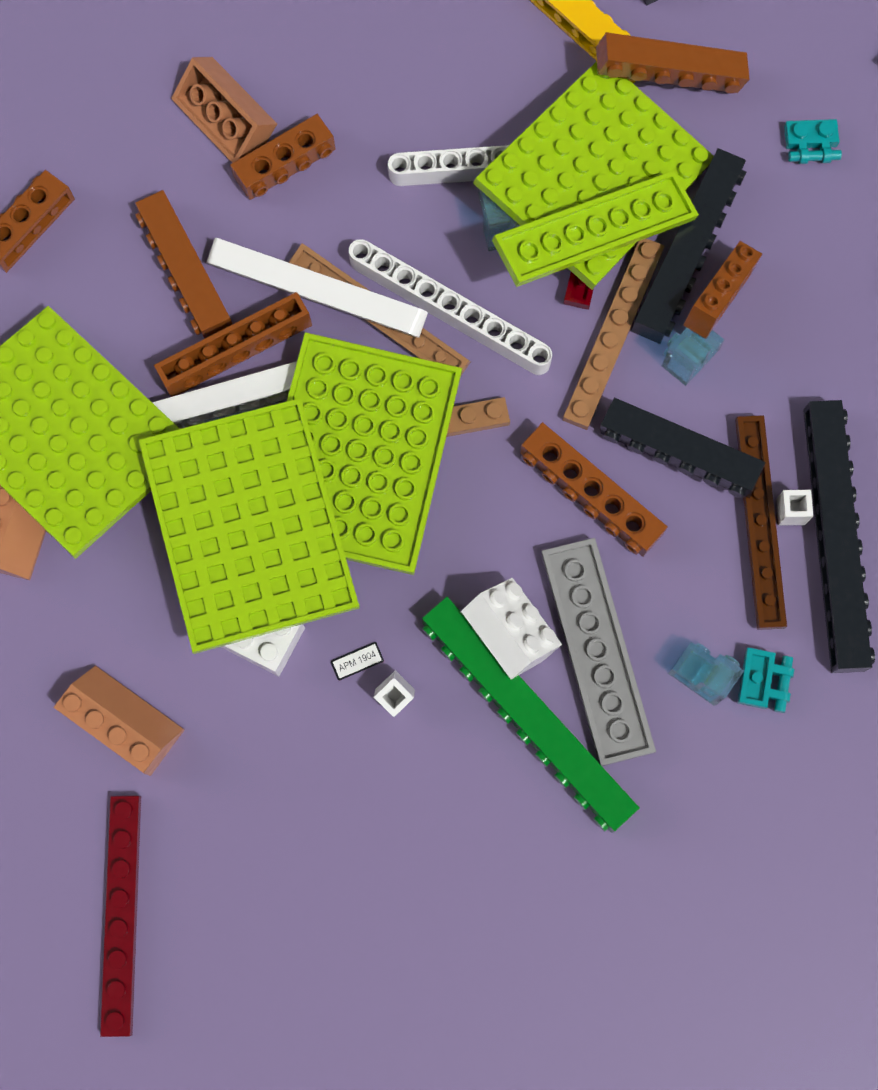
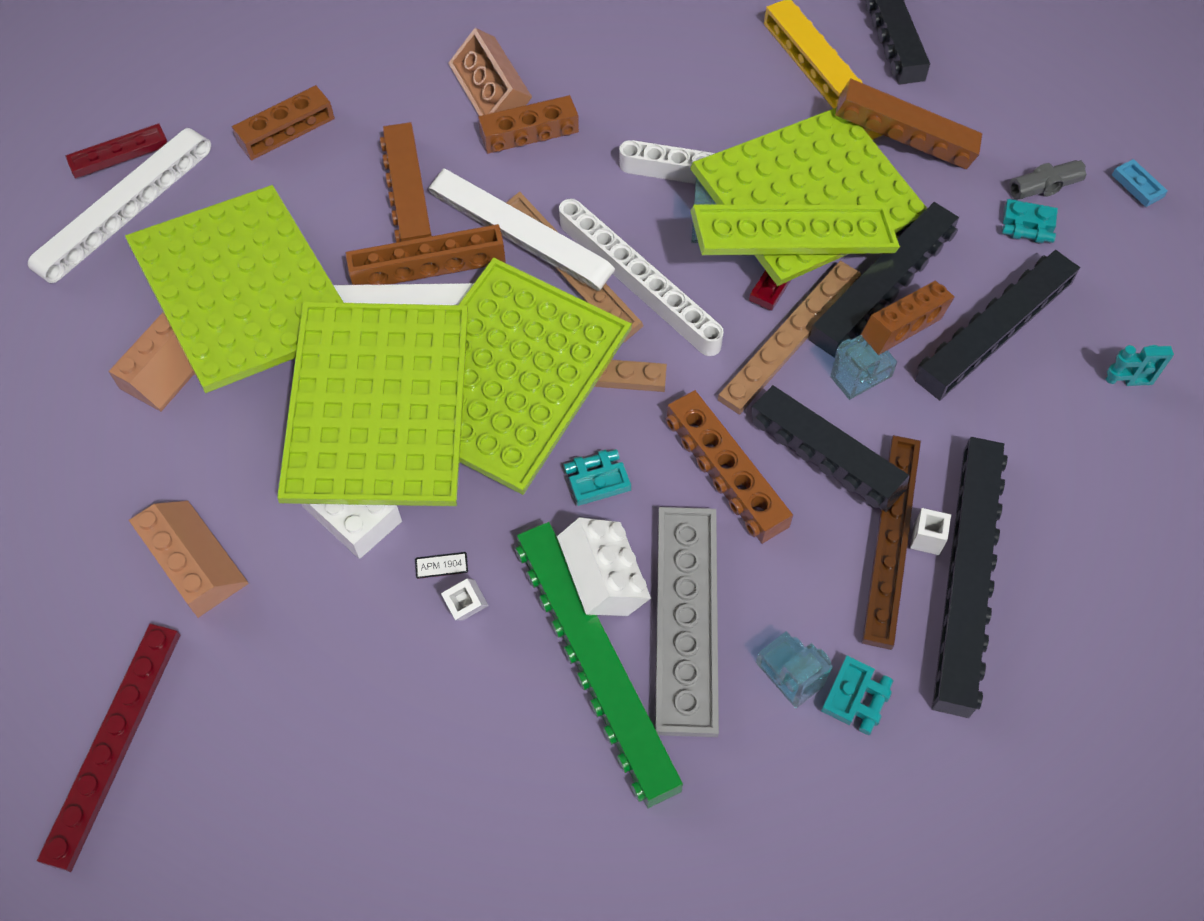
camera: 15 degrees right, 15 degrees down
(478, 540) = (598, 483): none -> teal plate
(807, 268) = (996, 325): none -> black brick
(820, 88) = (1047, 179): none -> dark grey piece

